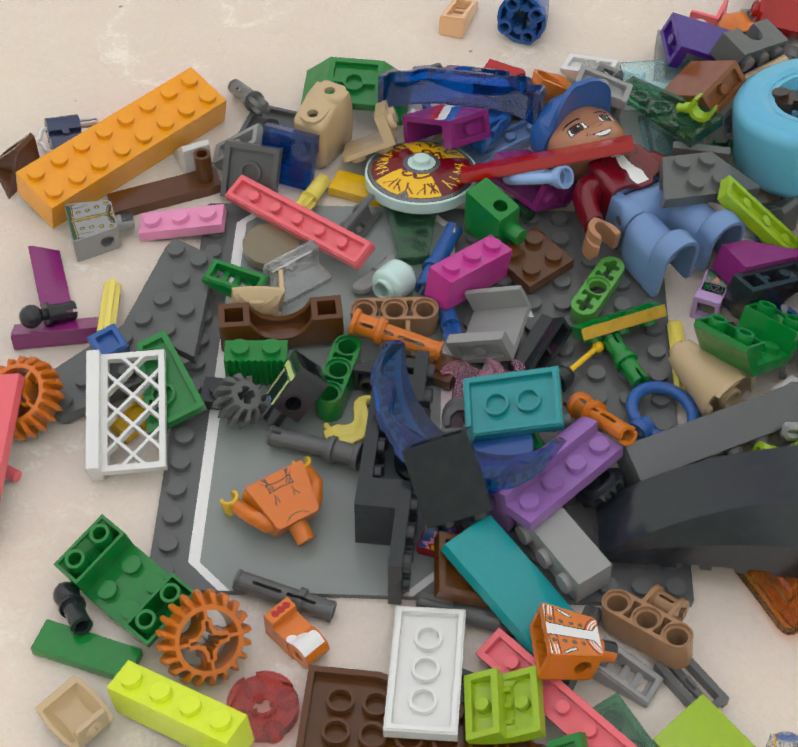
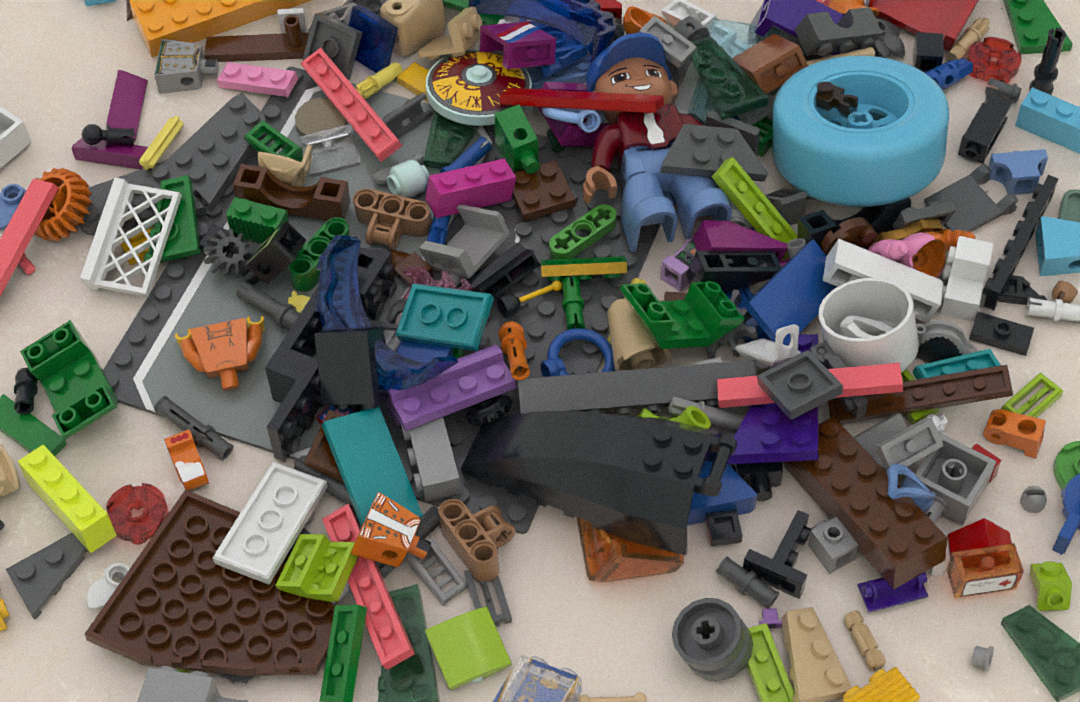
camera: 20 degrees right, 5 degrees up
(108, 341) = (143, 173): blue tile -> none
(211, 663) = (94, 443): orange gear -> none
(382, 326) = (367, 222): orange pin -> none
(694, 111) = (740, 85): lime piece -> none

